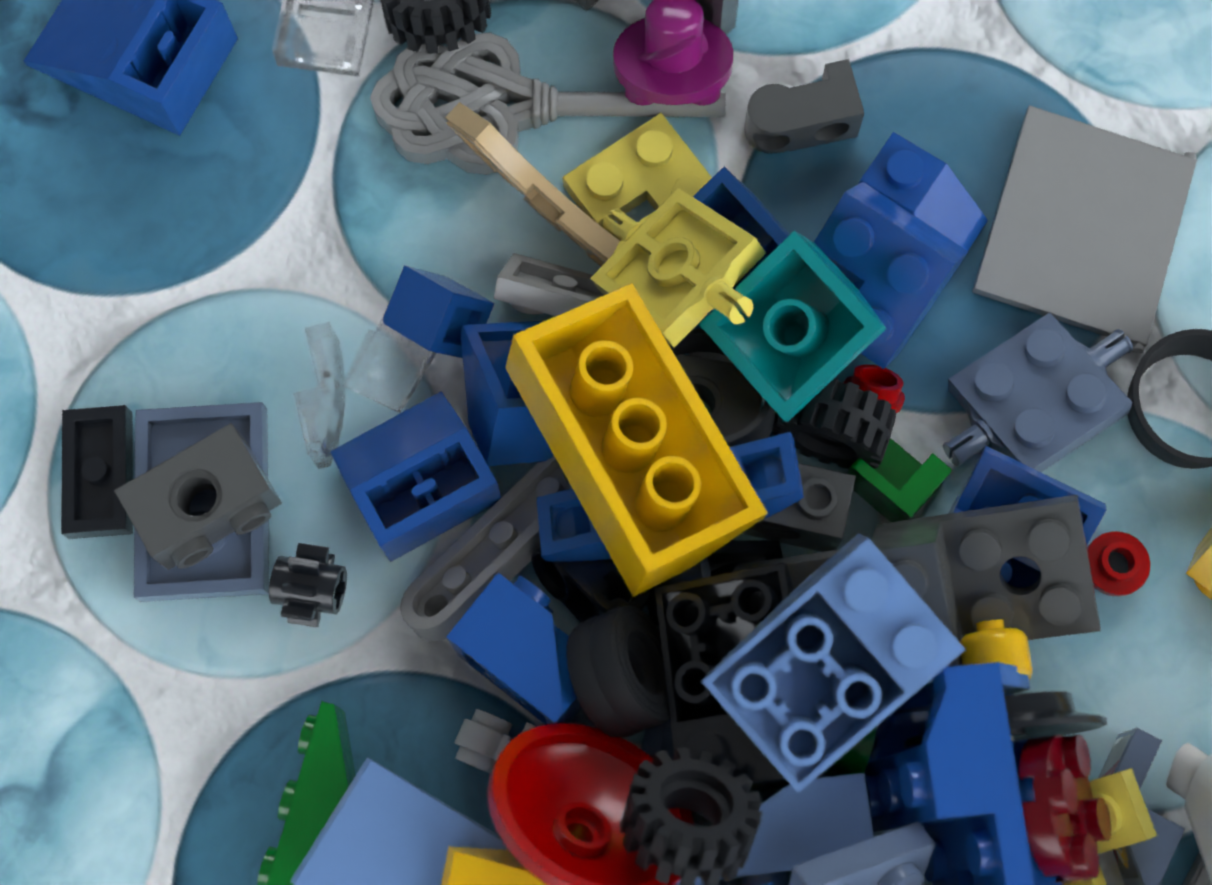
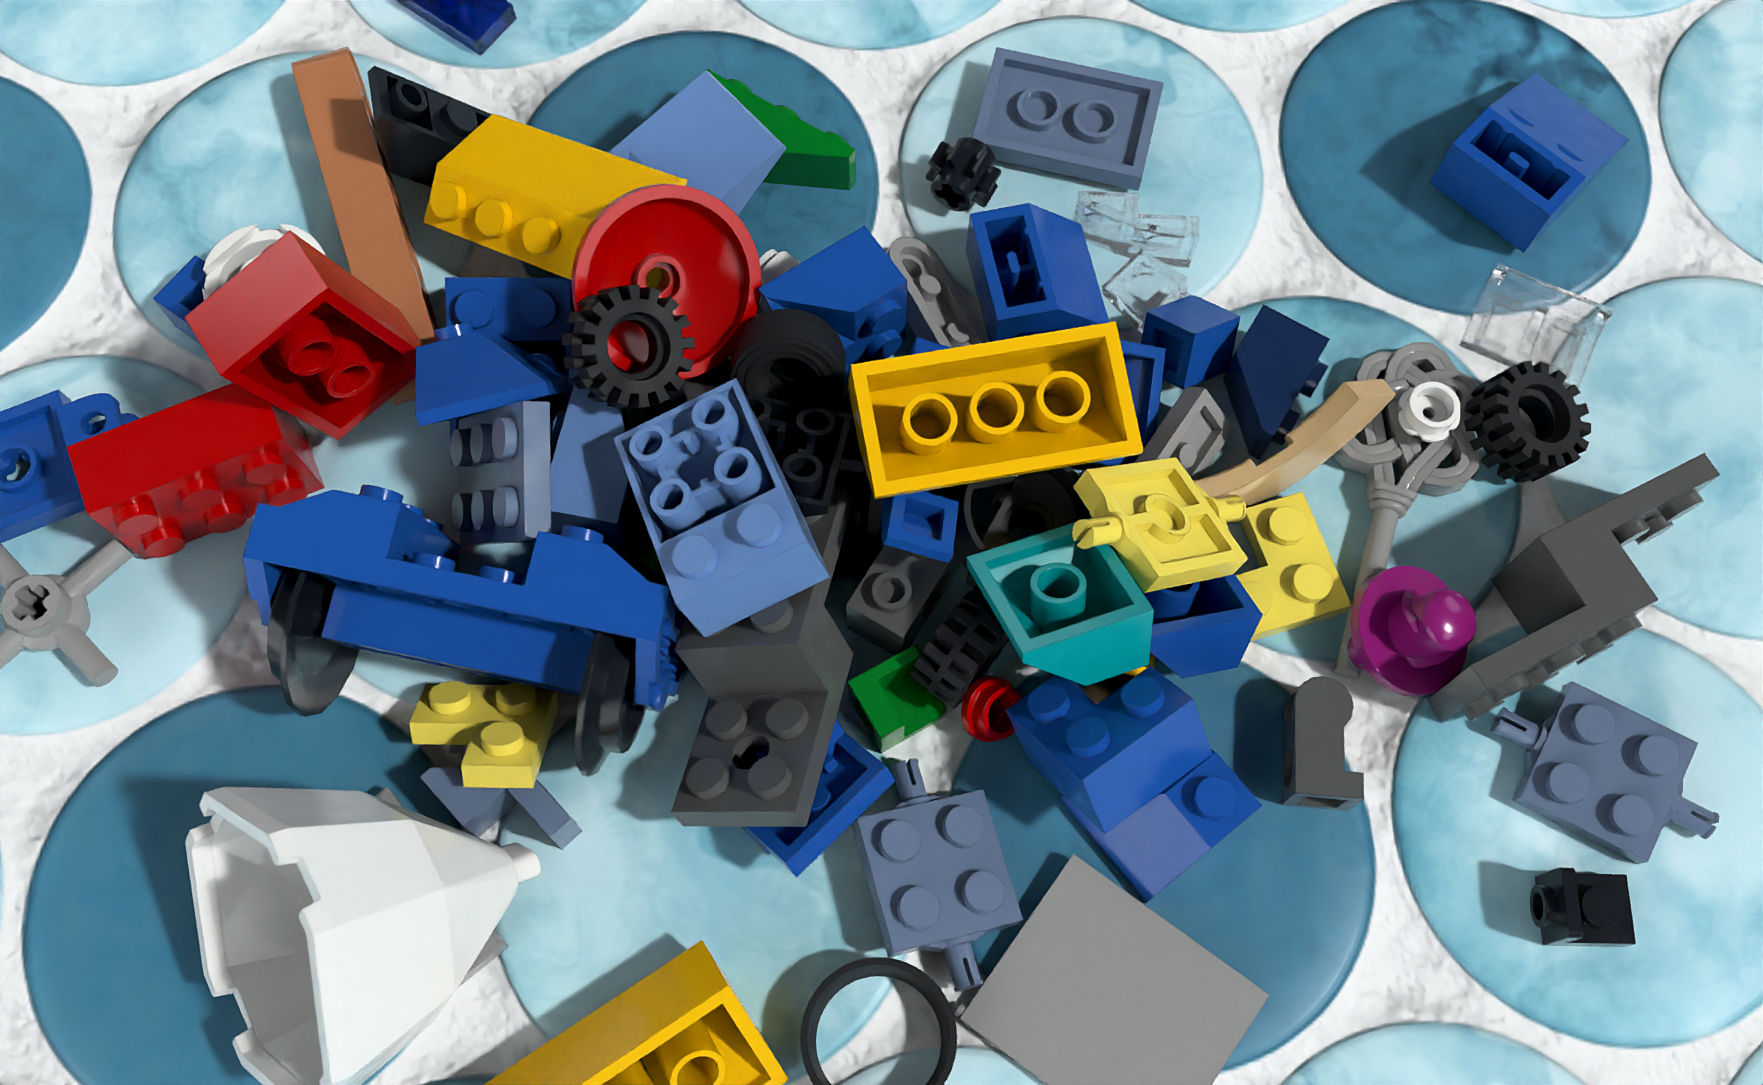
camera: 105 degrees right, 5 degrees down
(94, 464) = (1119, 45): black plate -> none
(162, 498) = (1064, 69): dark grey brick -> none
(455, 63) = (1439, 401): none -> white plate
(455, 228) = (1268, 373): none -> dark blue slope
(997, 644) = (683, 698): yellow piece -> none
(1064, 818) = (498, 703): dark red plate -> none
(1110, 581) = (744, 907): red plate -> none

